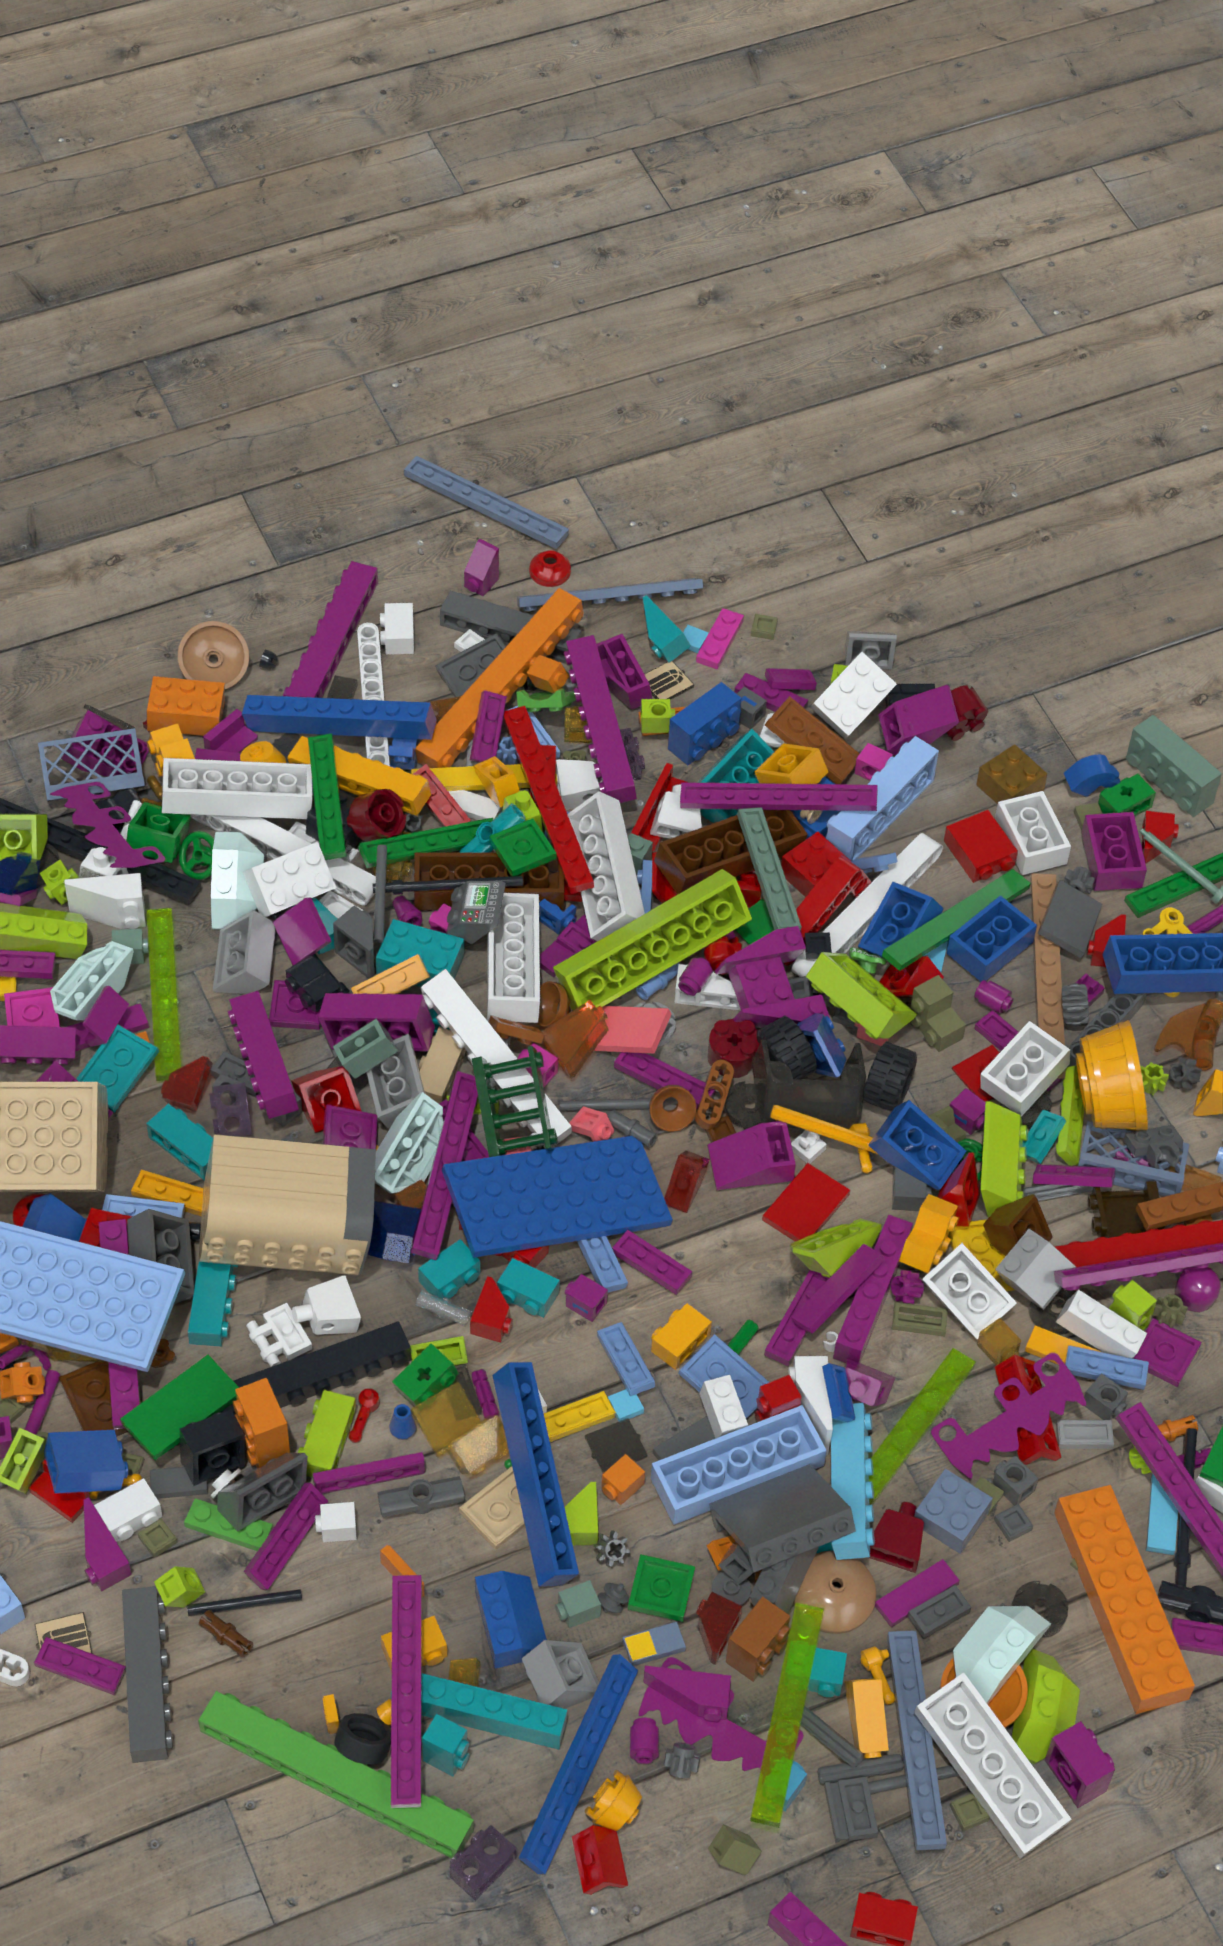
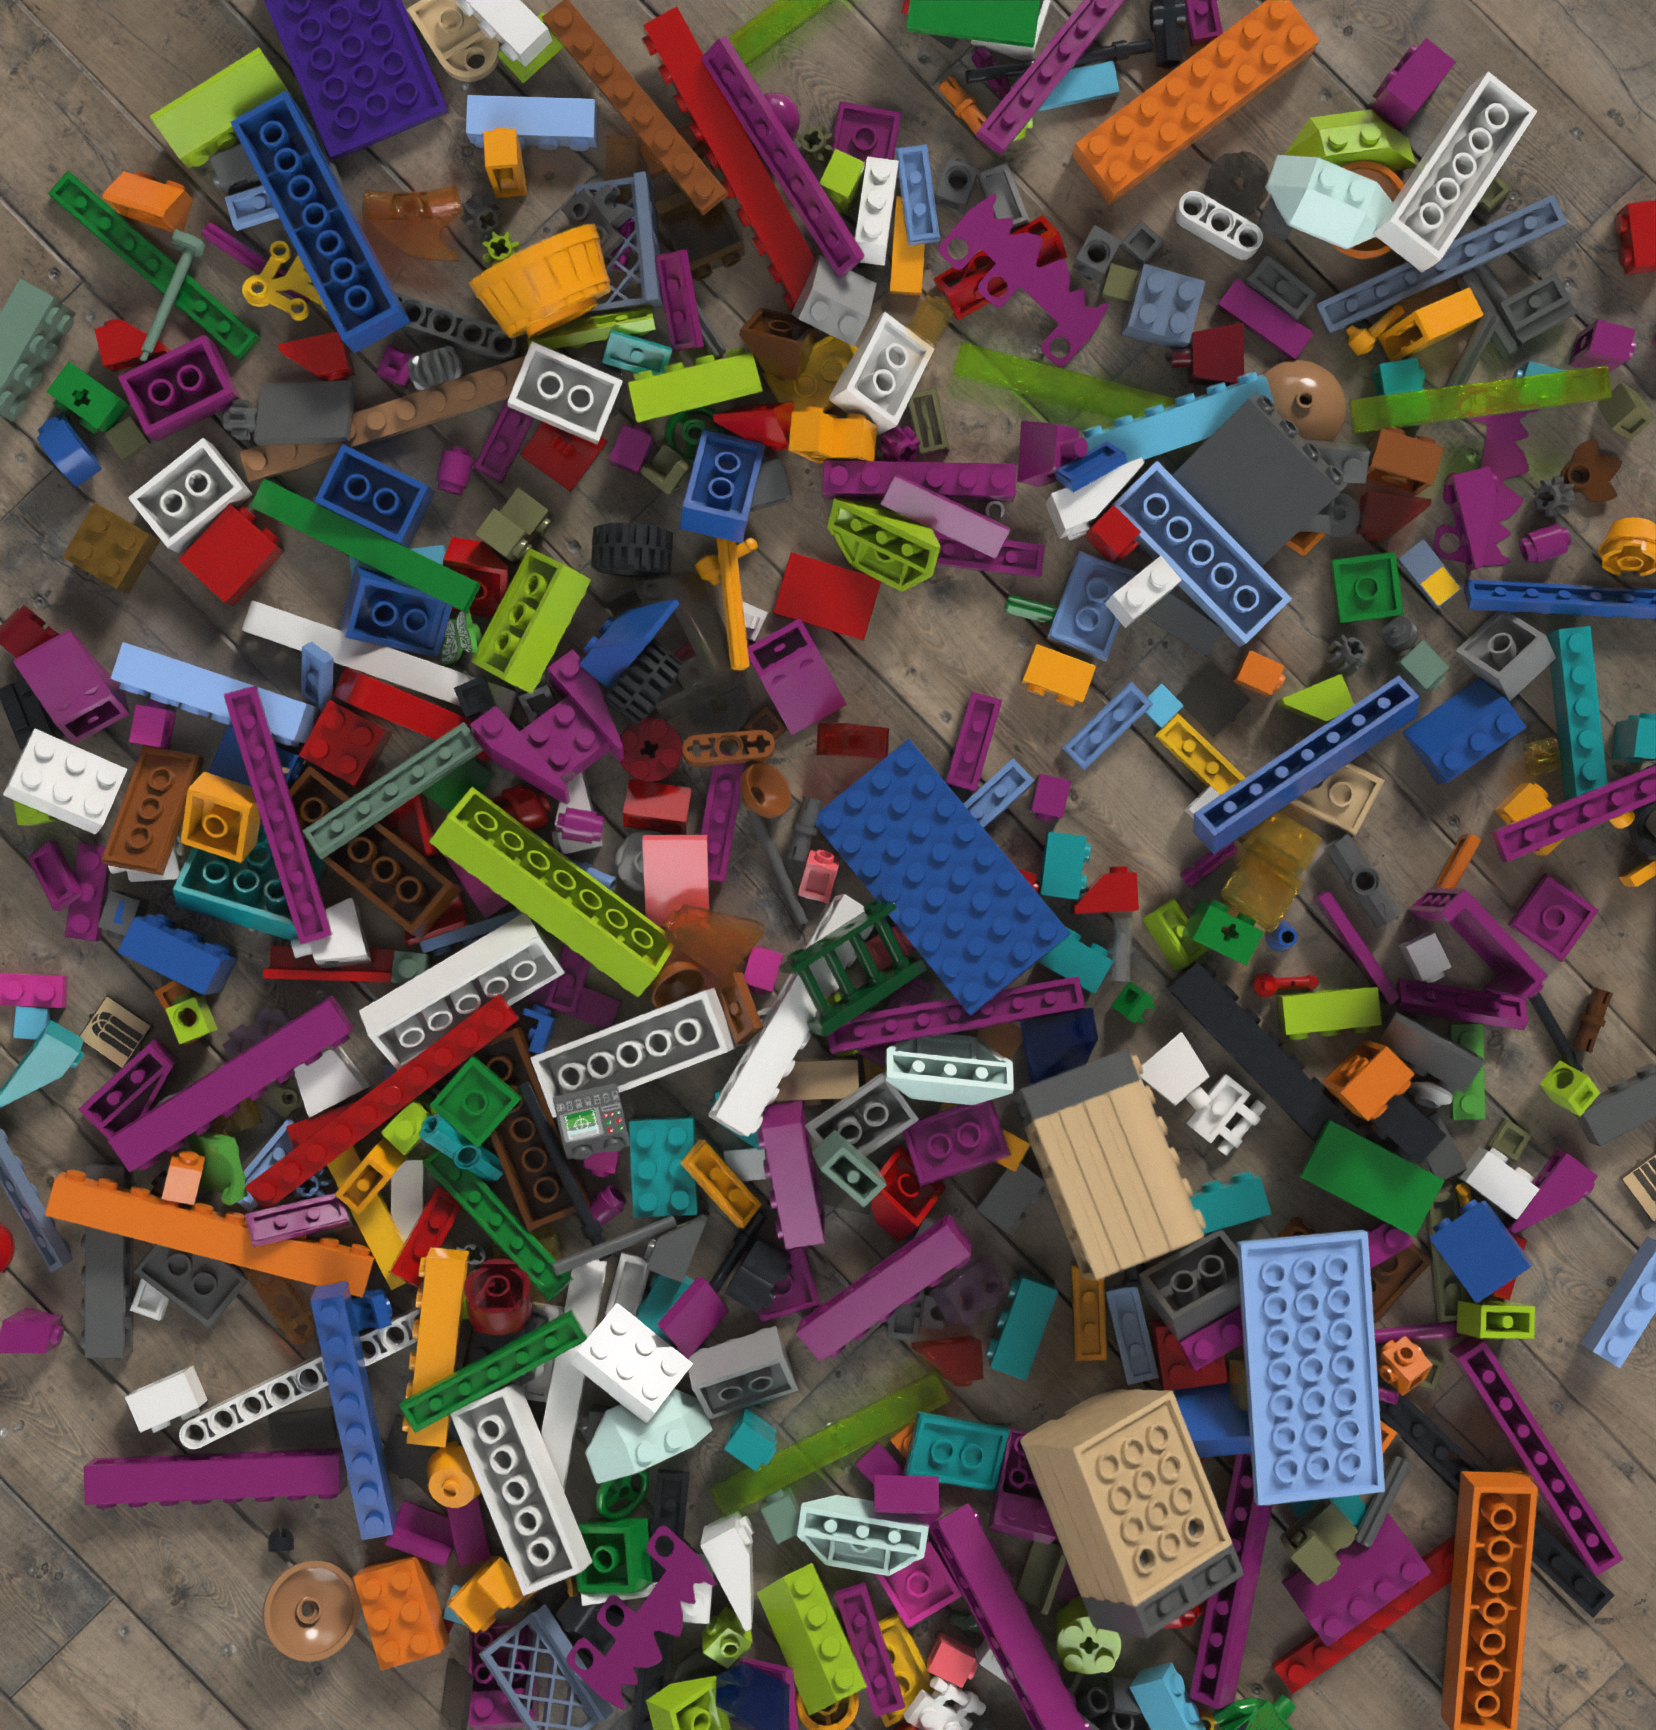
camera: 110 degrees left, 35 degrees up
(195, 939) = (751, 1440): none -> teal brick
(324, 1638) = (1553, 917): none -> magenta tile
(336, 1542) = (1515, 970): none -> magenta panel
(398, 1299) = (1133, 1002): none -> green tile
(689, 1038) = (657, 807): none -> red panel
(691, 1809) = (1594, 472): none -> reddish brown plate
(797, 1838) = (1603, 345): none -> magenta brick
(1014, 1569) = (1211, 210): none -> white beam

